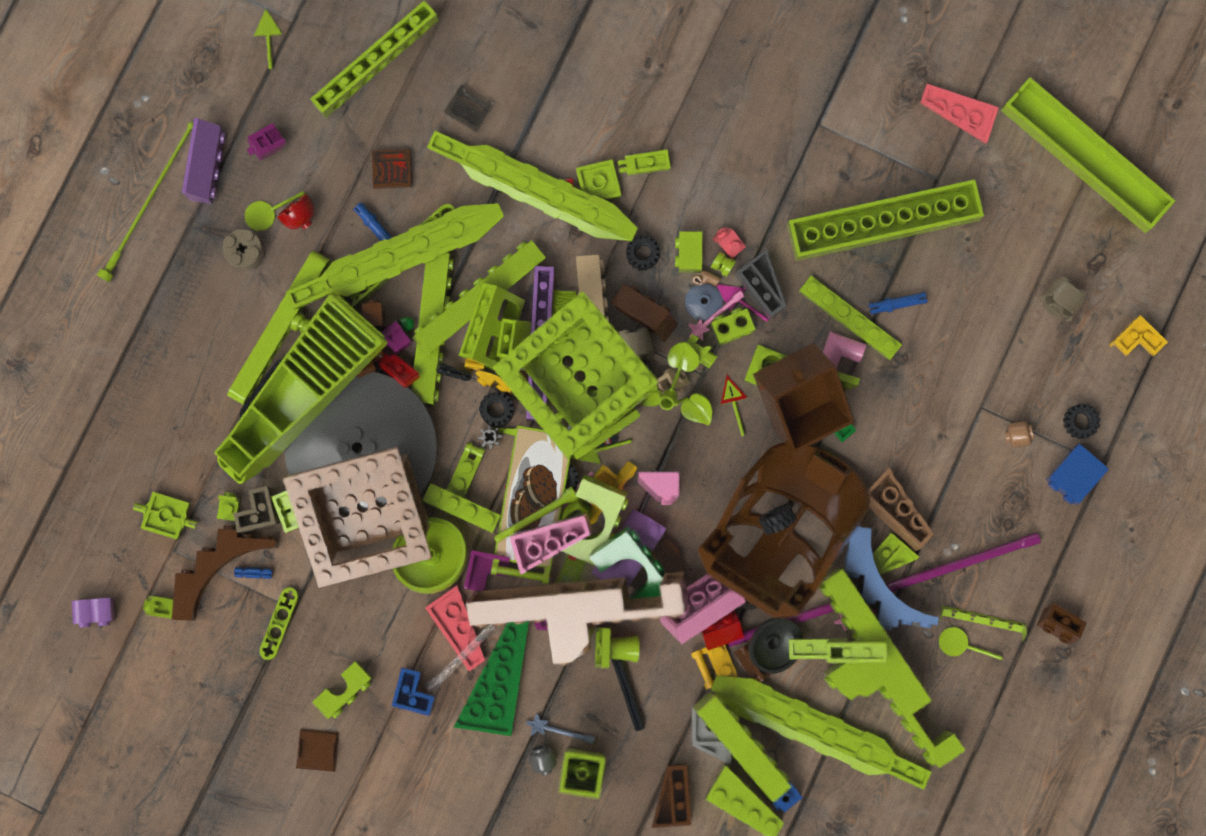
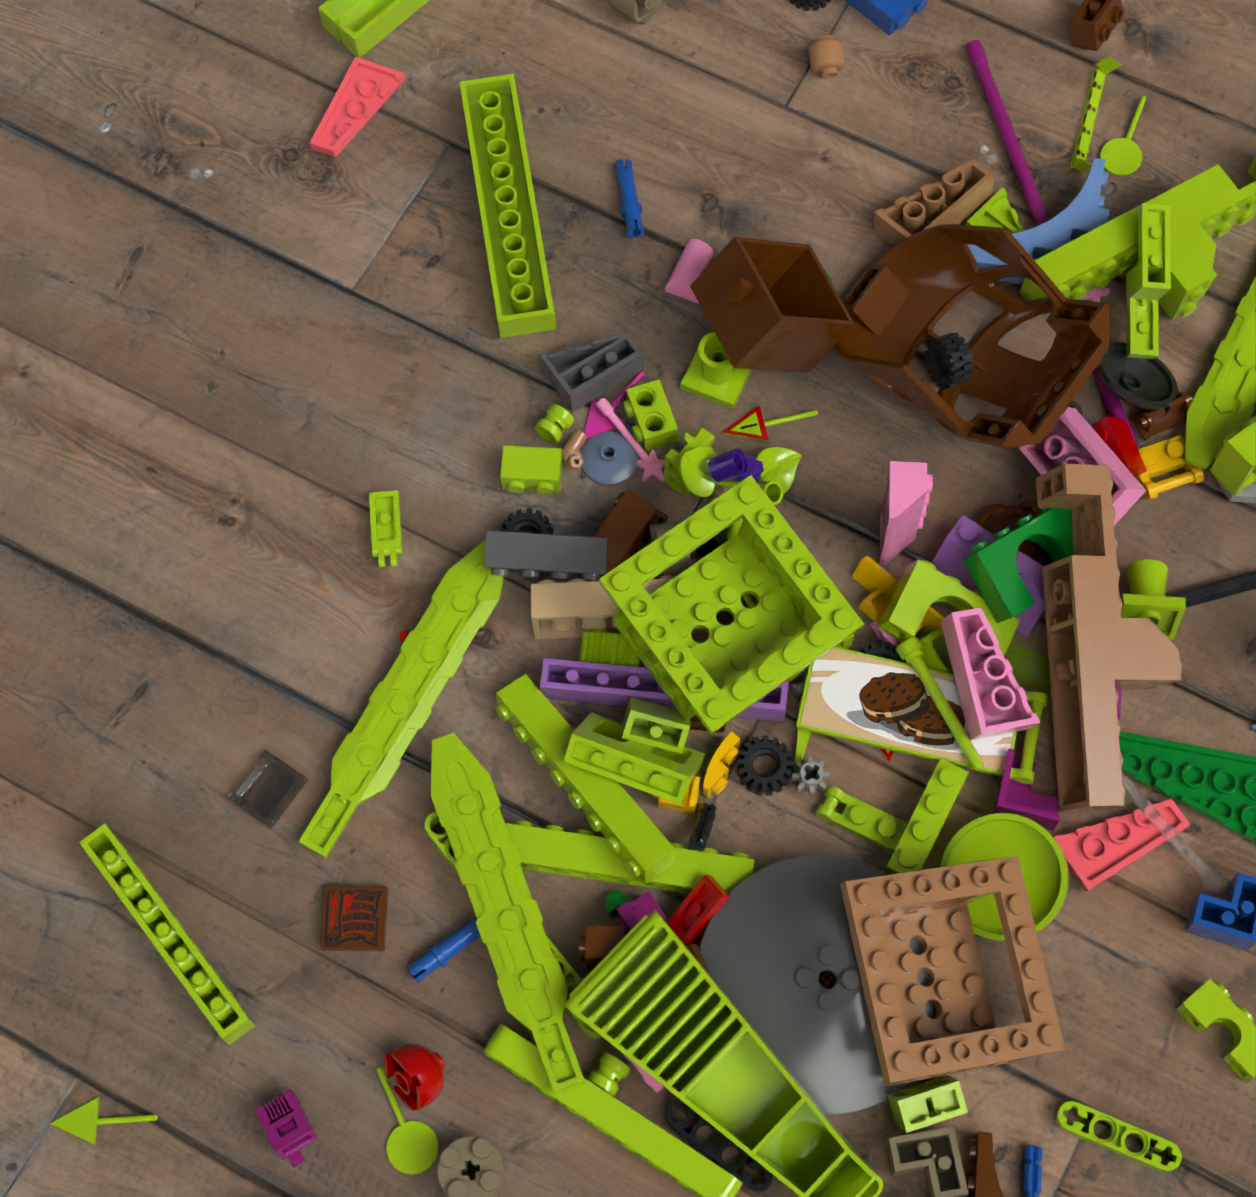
camera: 85 degrees left, 15 degrees down
(599, 180) = (406, 594): lime plate -> none
(622, 263) = (546, 554): none -> dark grey brick
(688, 379) = (734, 466): none -> dark purple piece
(729, 242) = (519, 415): coral bracket -> none
(850, 318) = (646, 262): lime plate -> none

